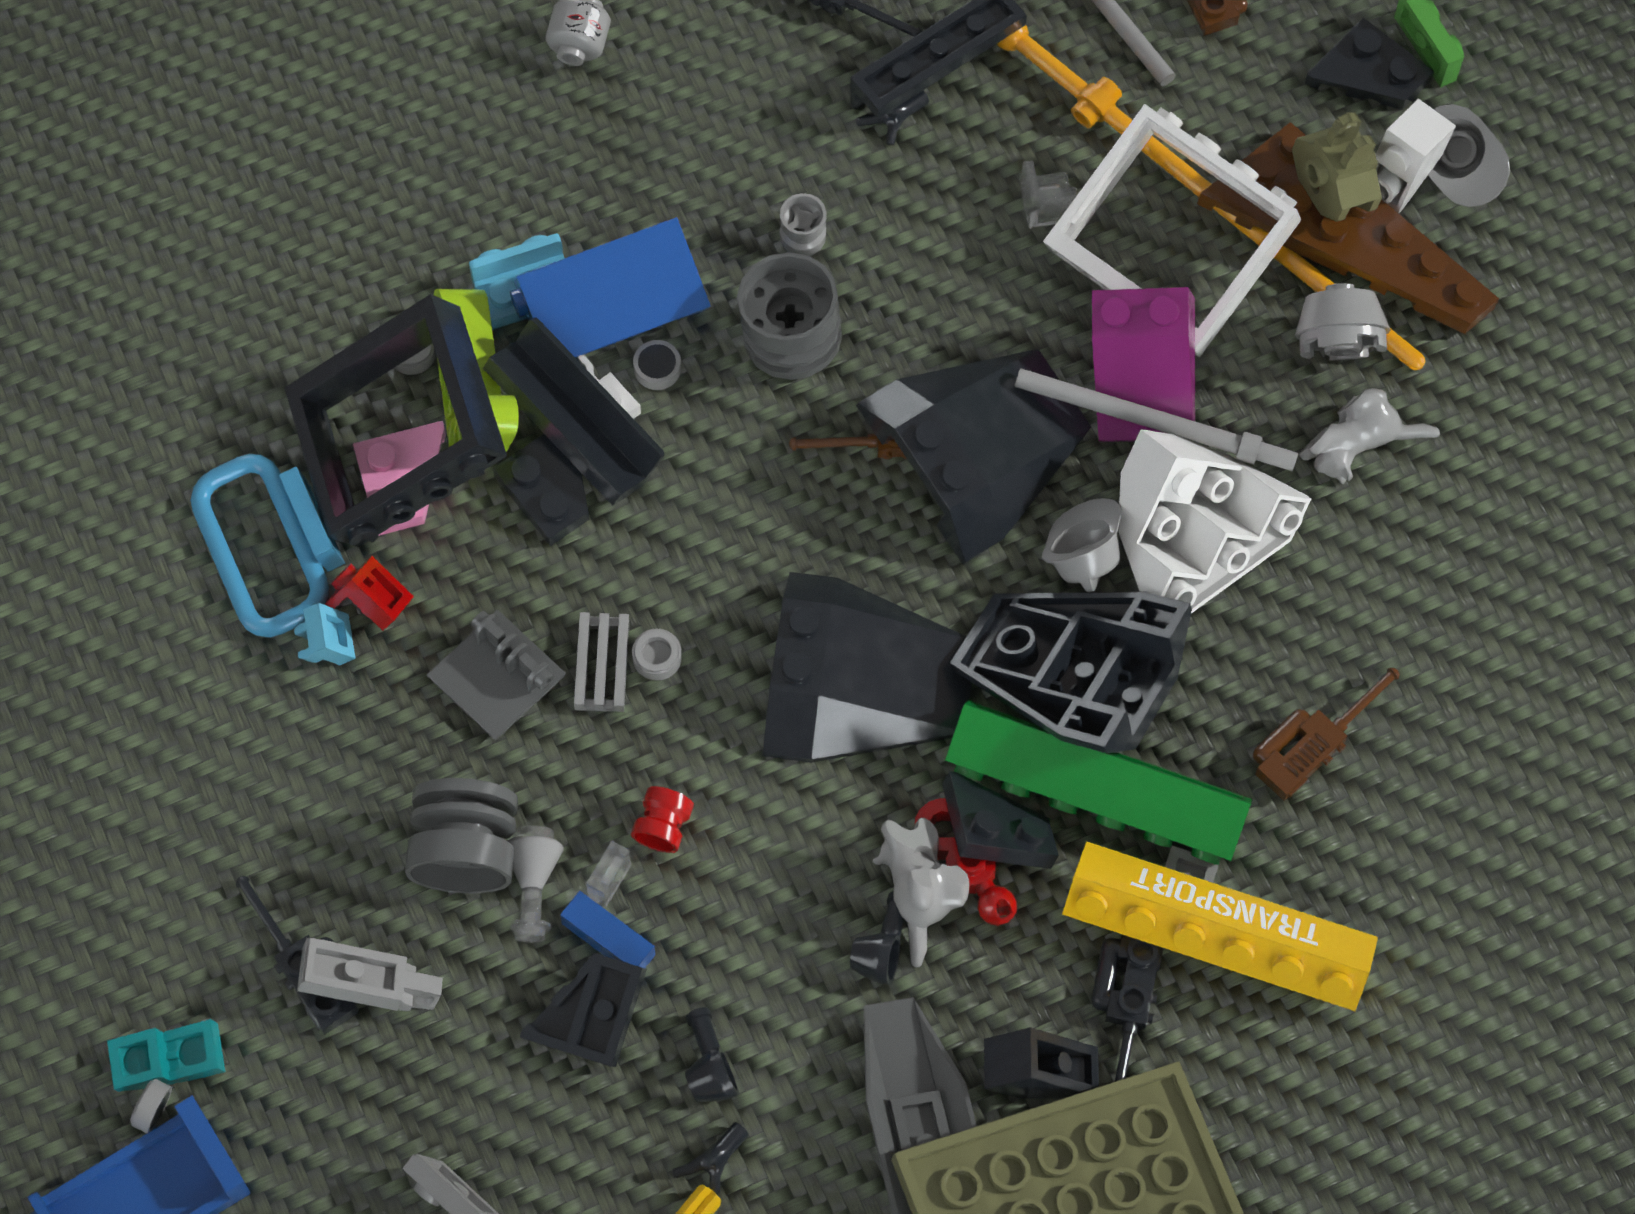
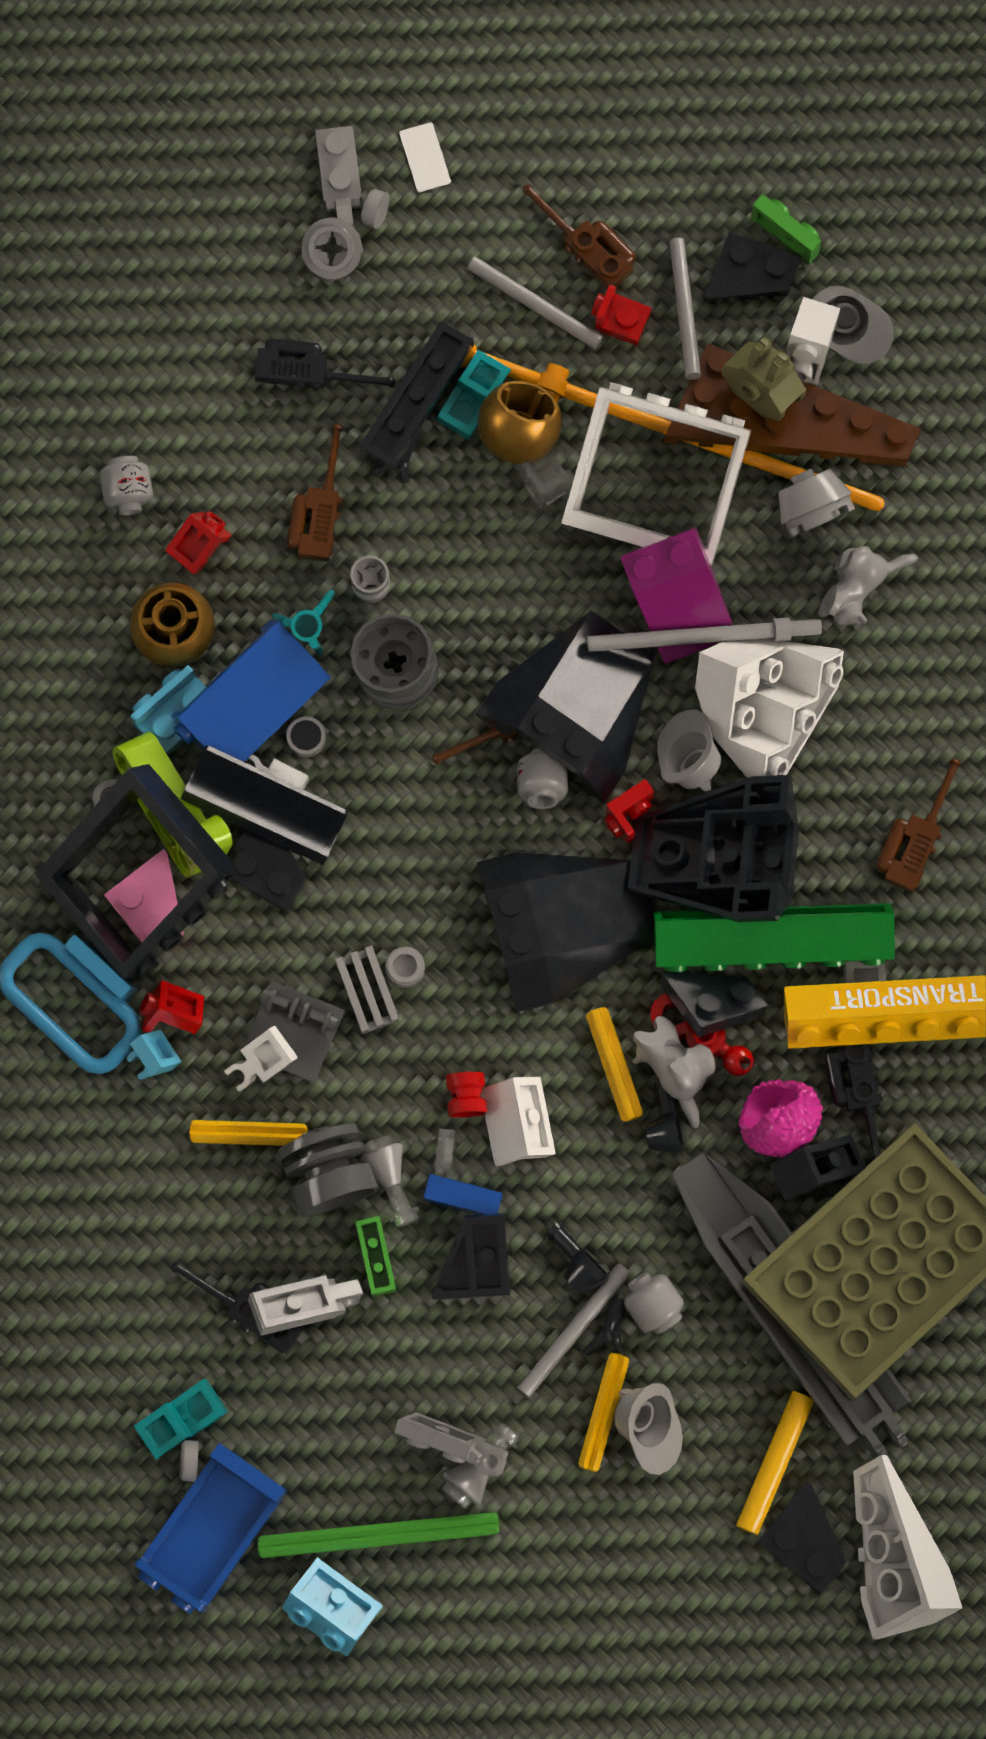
camera: 20 degrees left, 10 degrees up
(380, 758) = (245, 1132): none -> yellow axle
(449, 686) = (264, 1057): none -> white plate
(476, 962) = (375, 1256): none -> bright green piece
(569, 205) = (168, 599): none -> pearl gold wheel
(630, 115) = (198, 540): none -> red bracket
(670, 1142) = (573, 1330): none -> light grey bar
(708, 236) = (307, 623): none -> teal plant
(710, 873) = (517, 1120): none -> white panel
(778, 1145) = (653, 1302): none -> light grey head
(783, 138) = (323, 506): none -> reddish brown piece
(850, 856) = (614, 1064): none -> yellow axle
(902, 508) = (541, 780): none -> light grey head
(993, 572) = (630, 803): none -> red bracket
(1004, 79) = (474, 385): none -> teal slope
(1019, 987) = (780, 1117): none -> dark pink hair
(1041, 119) = (519, 422): none -> pearl gold wheel
(1203, 60) = (620, 316): none -> red bracket
(1279, 77) = (685, 308): none -> light grey bar

